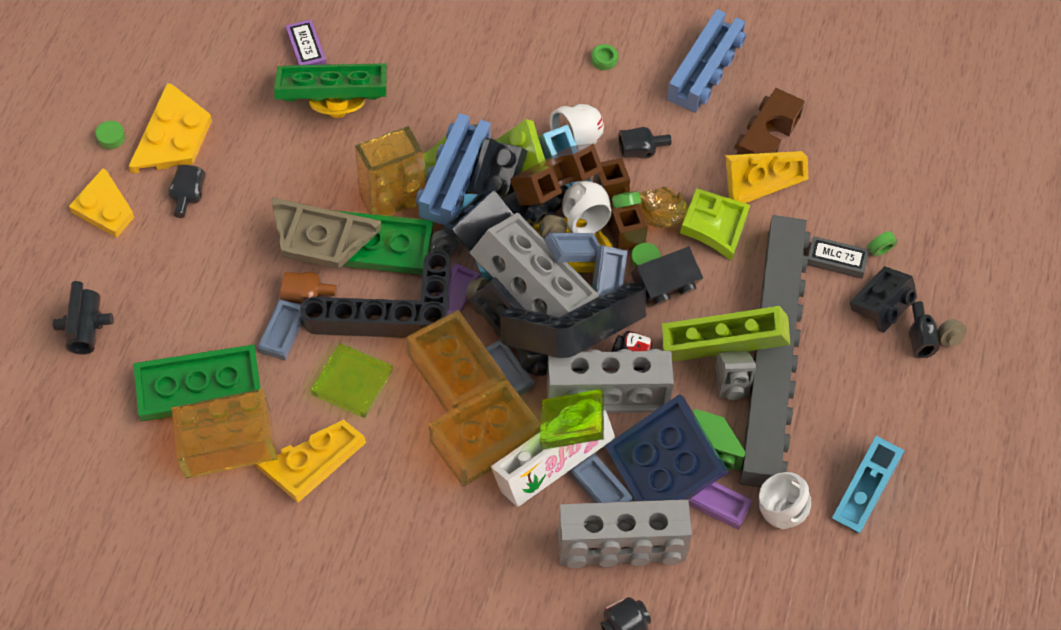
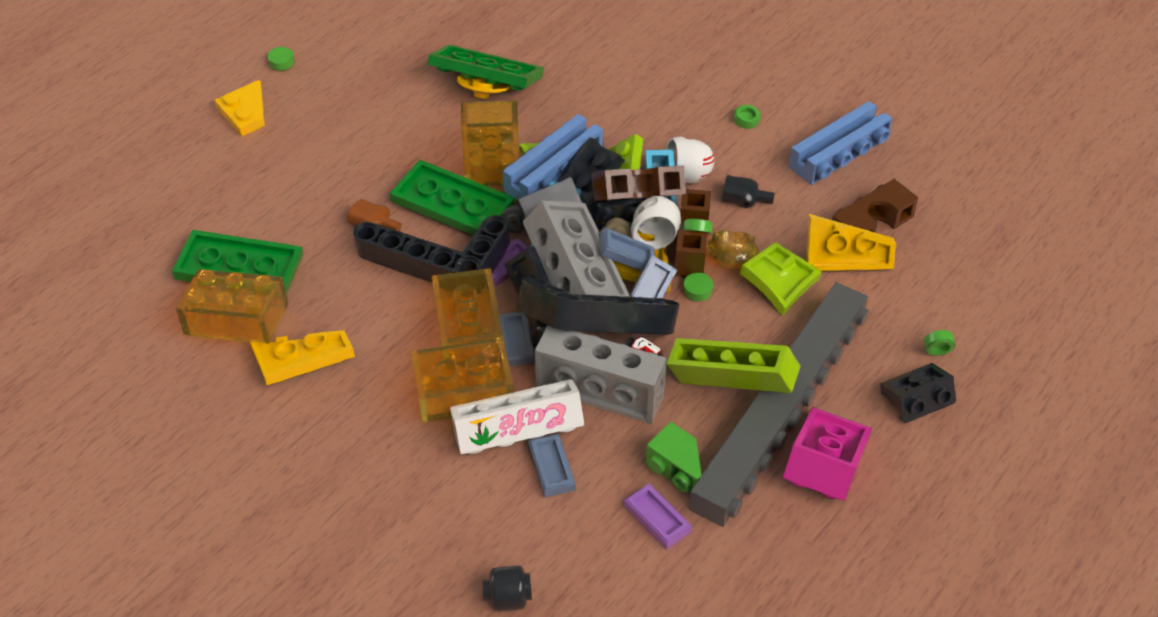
camera: 25 degrees right, 10 degrees down
(82, 319) = (171, 183): black pin -> none
(172, 132) = (332, 72): yellow wing -> none
(186, 187) = (319, 113): black piece -> none
(281, 330) = (333, 247): sand blue tile -> none
(305, 43) = (483, 35): tile -> none
(320, 234) = (406, 176): dark tan wing -> none
(352, 380) = (372, 303): clear neon green tile -> none
(572, 419) = (543, 388): clear neon green tile -> none
(620, 525) = (547, 496): light grey brick -> none
(667, 455) = (620, 456): dark blue plate -> none
(668, 275) = (707, 304): black brick -> none
(734, 374) = (727, 406): light grey slope -> none
(784, 501) = (719, 532): white helmet -> none
(837, 257) = (889, 342): tile -> none
(837, 388) = (827, 454): none -> dark pink slope
(868, 484) = (818, 548): medium azure slope -> none
(923, 332) = (943, 433): black piece -> none
(951, 332) = (973, 442): dark tan plate -> none

